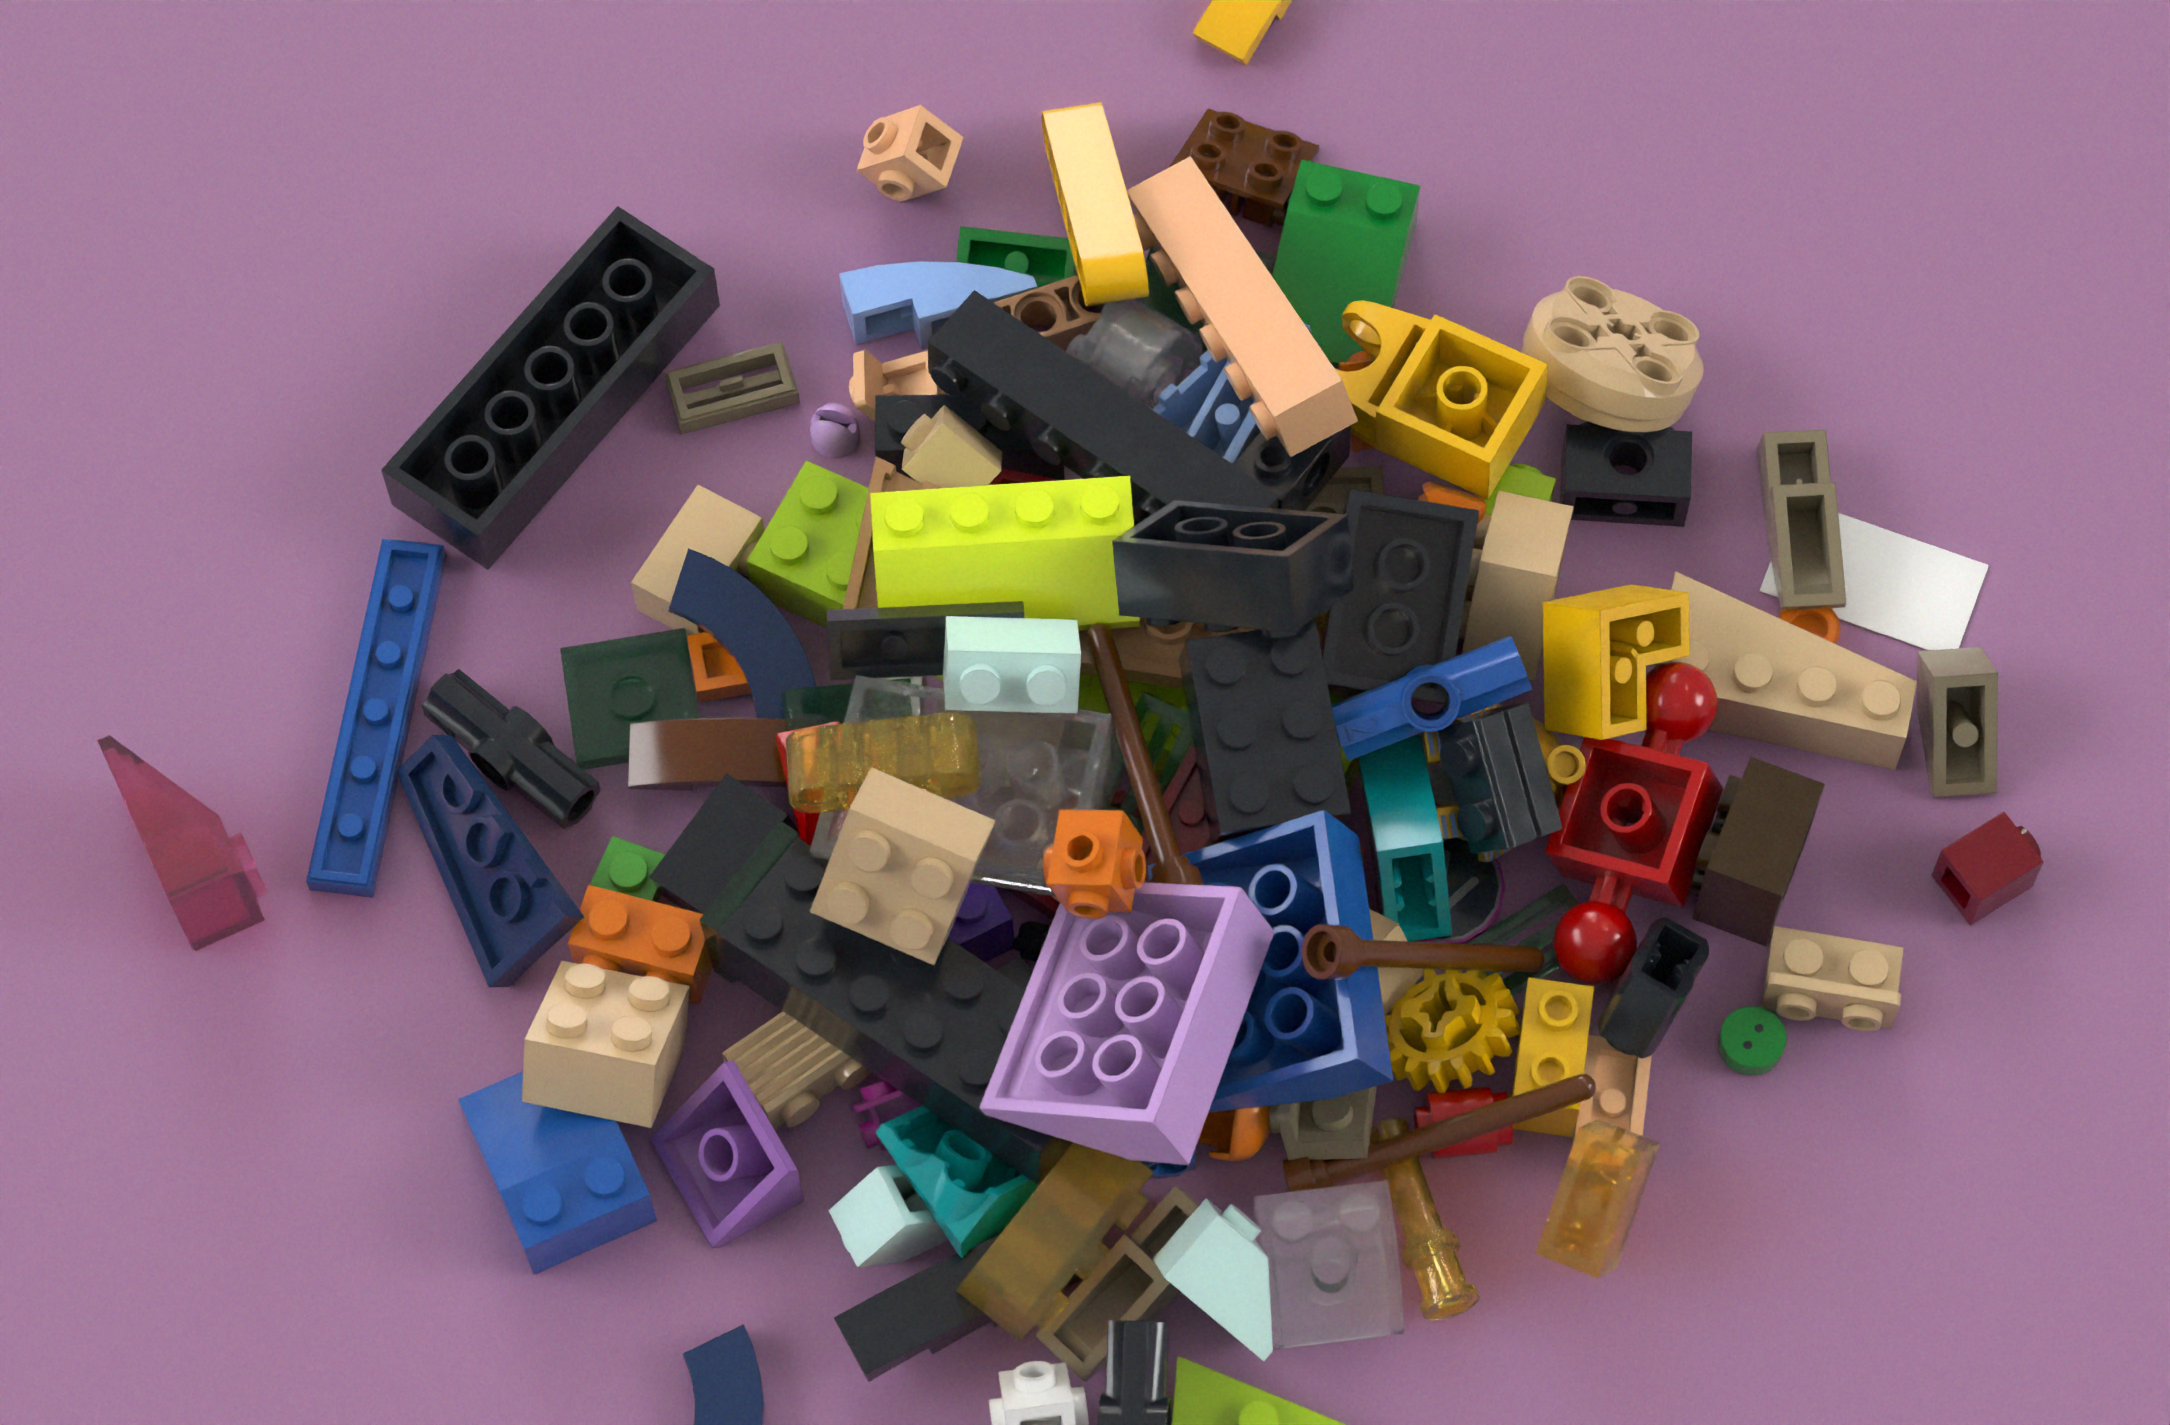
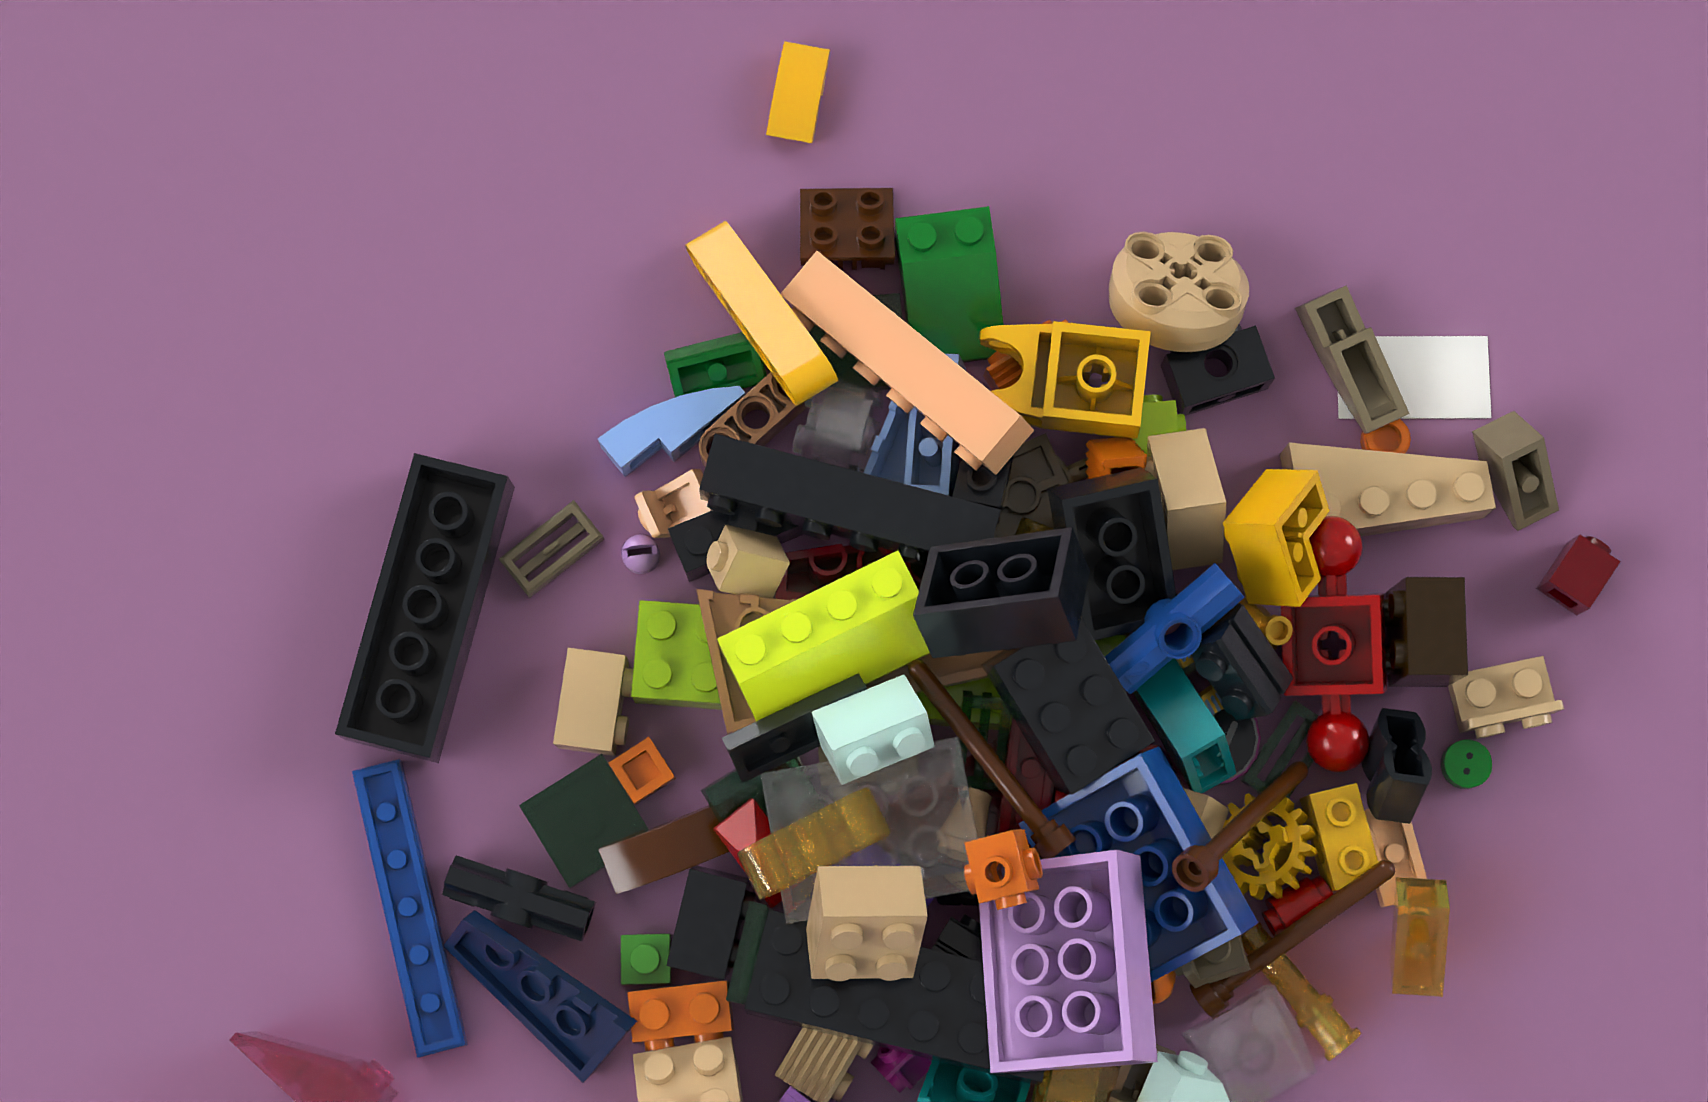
camera: 25 degrees left, 15 degrees up
(746, 627) = (656, 747): dark blue tile -> none
(909, 154) = (605, 318): light nougat brick -> none

